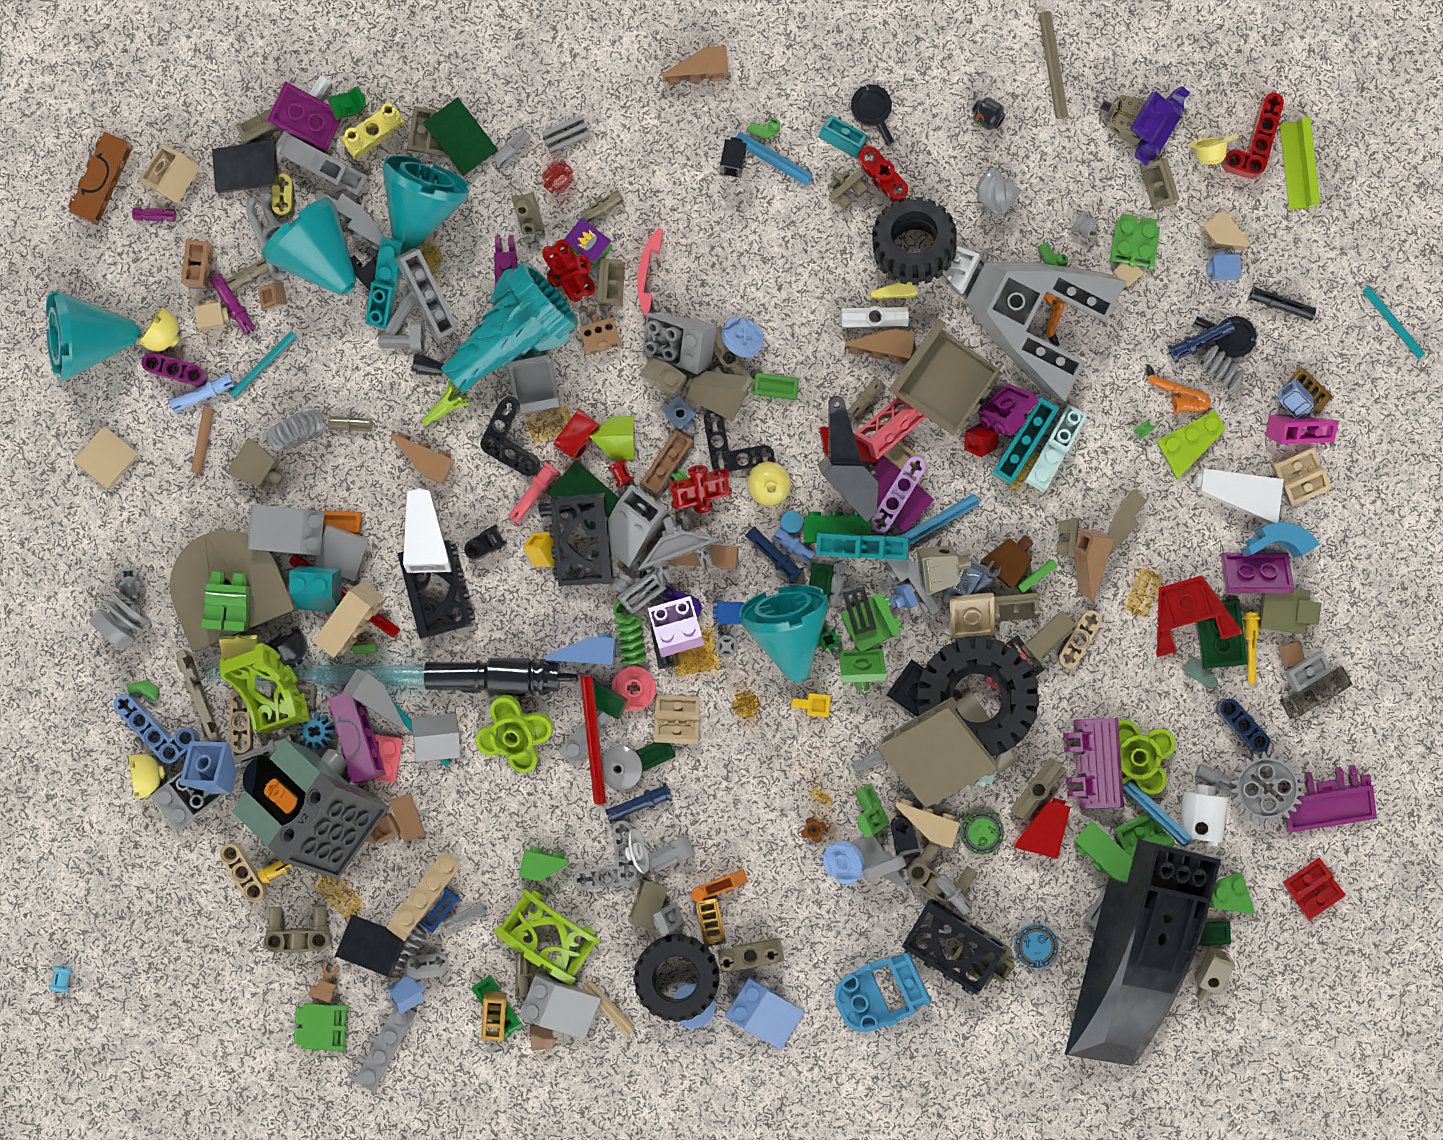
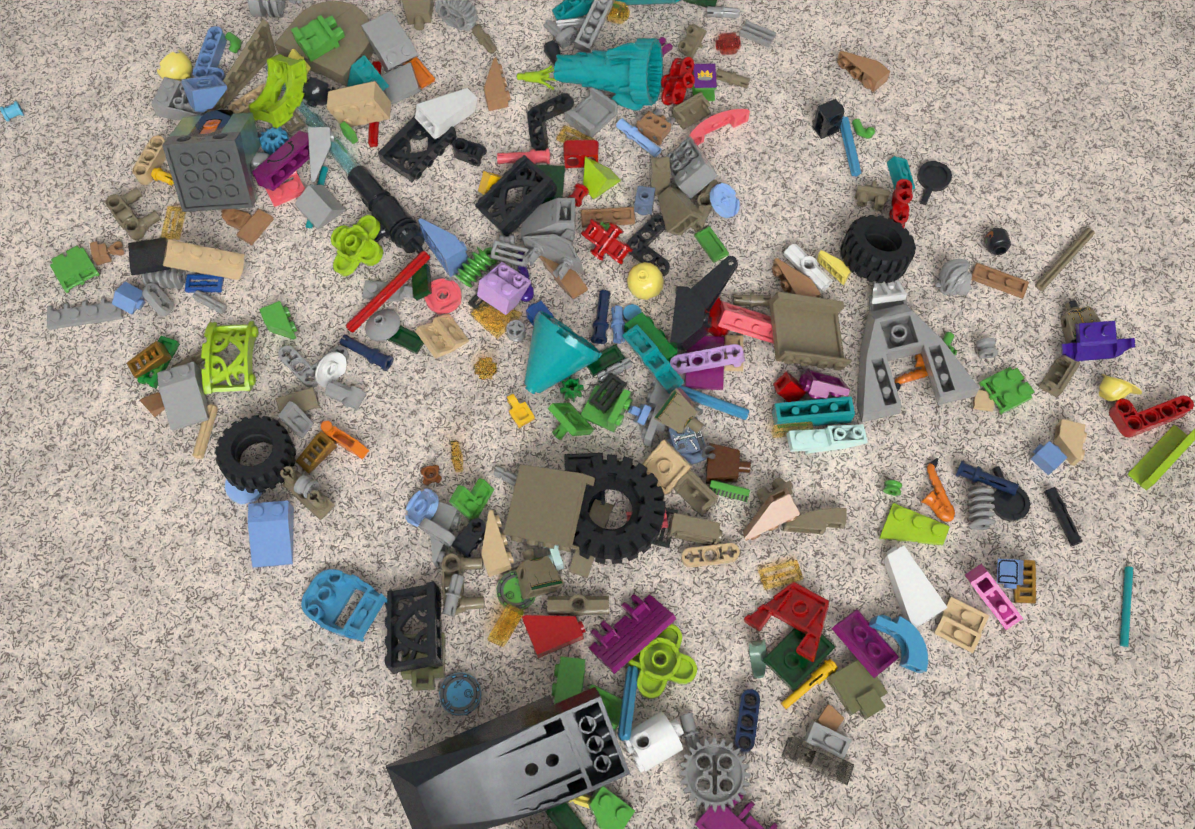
camera: 50 degrees right, 20 degrees down
(590, 362) = (633, 133): none -> light blue pin
(751, 954) = (305, 485): none -> light grey wheel
(986, 806) = (537, 575): none -> dark tan torso
(1008, 865) = (505, 625): none -> clear yellow slope
(1026, 147) = (999, 280): none -> medium nougat tile

